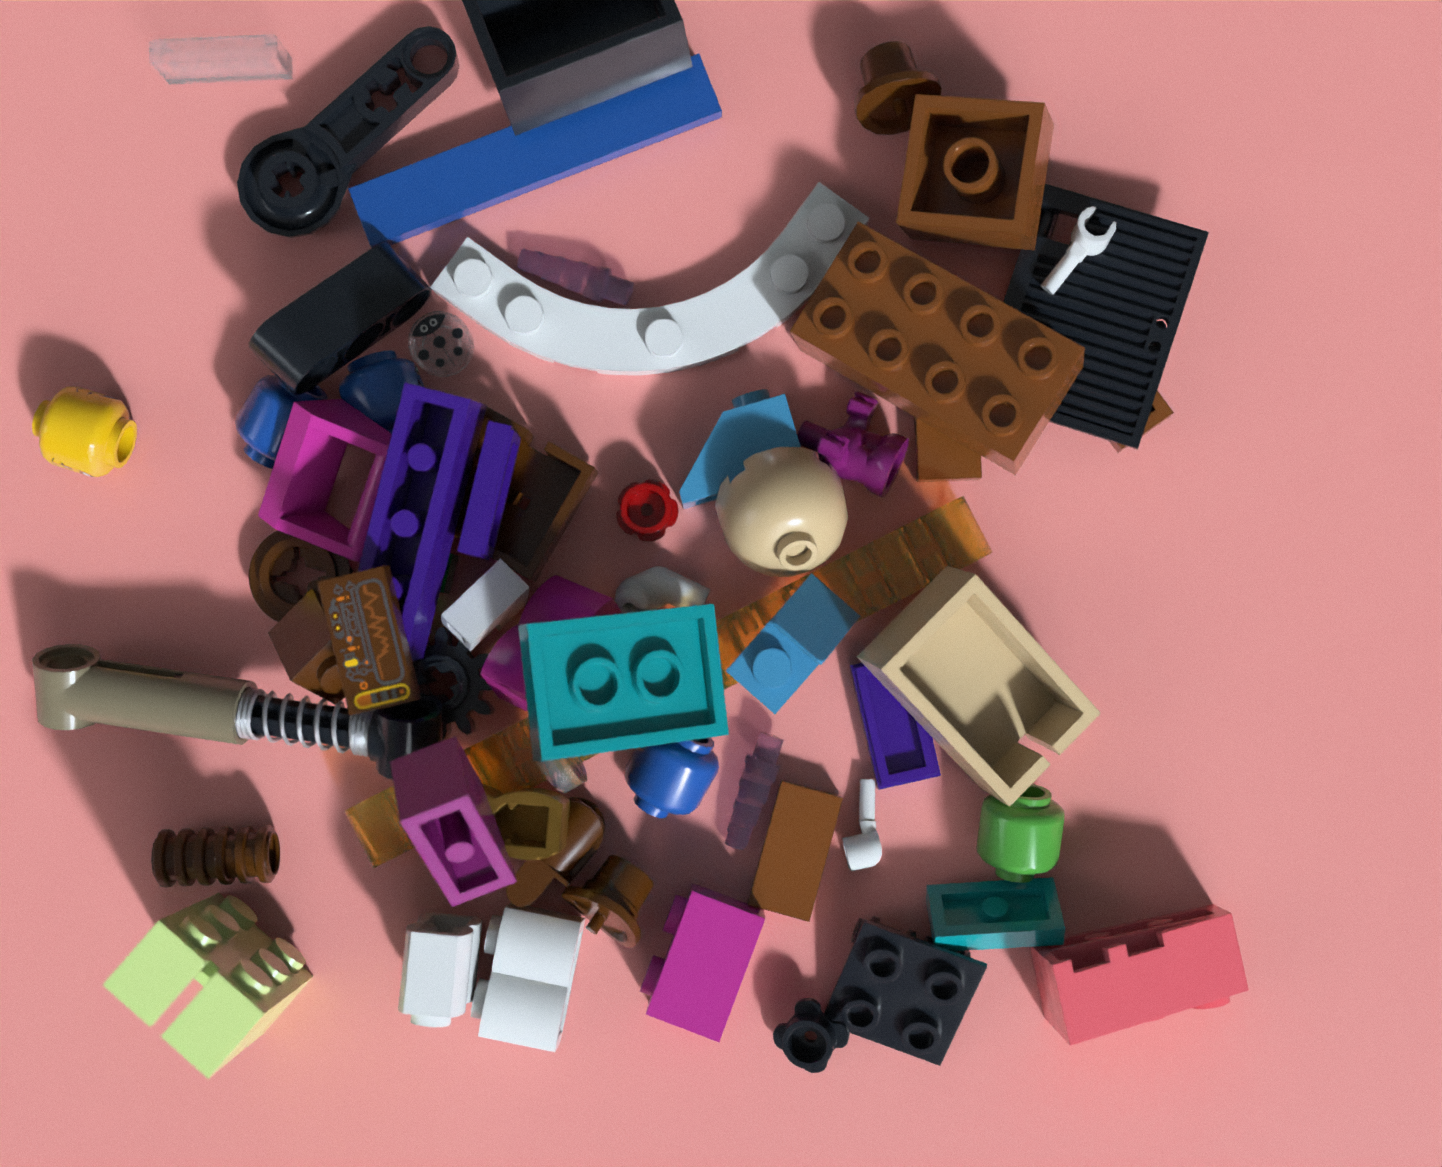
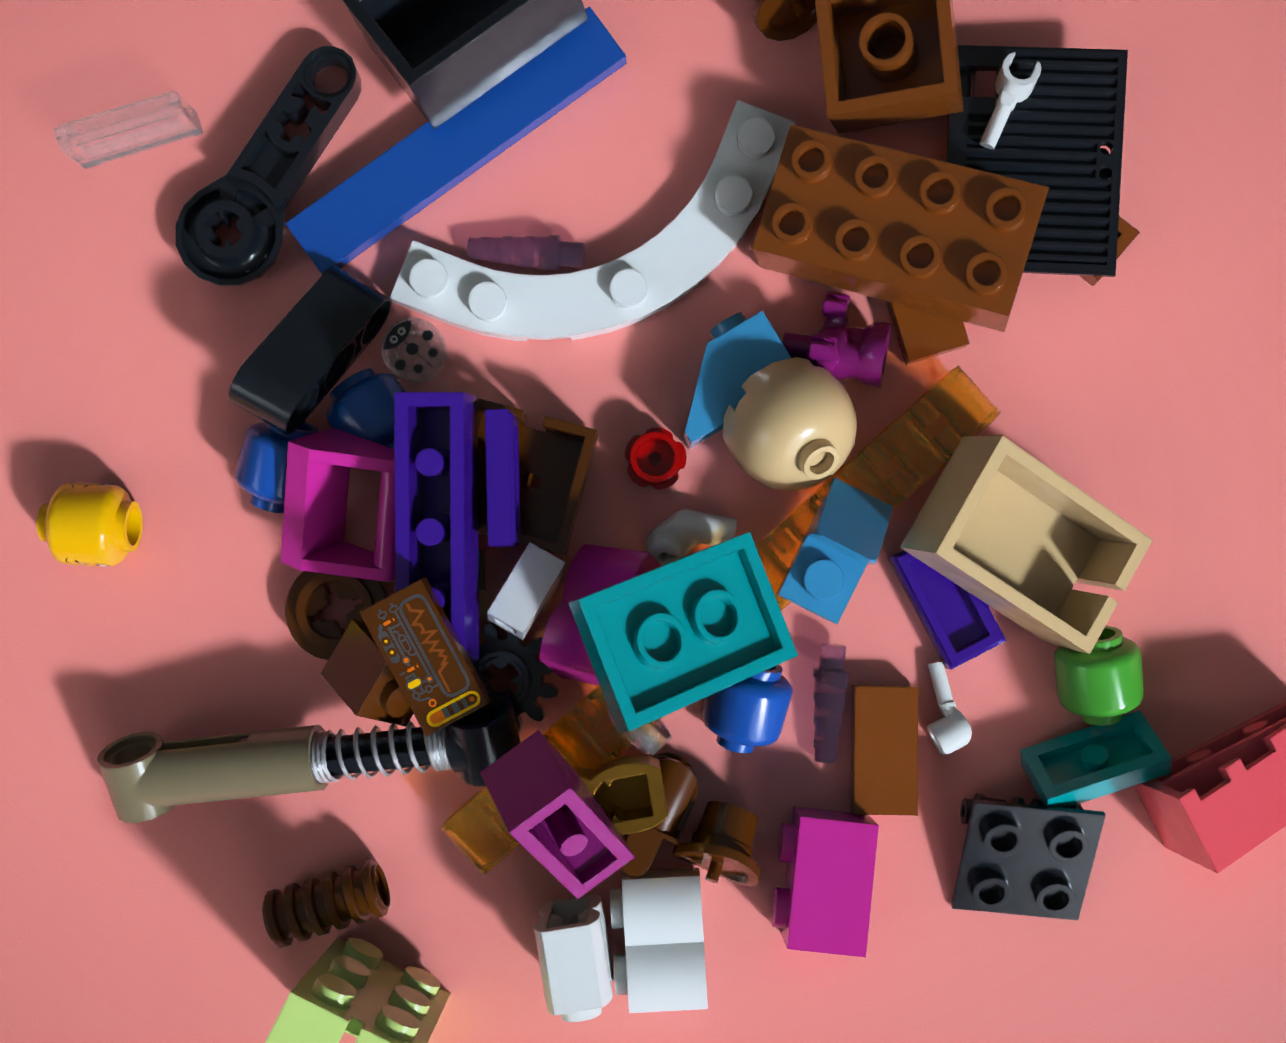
camera: 15 degrees left, 0 degrees up
(807, 1053) = (952, 942): black plate -> none

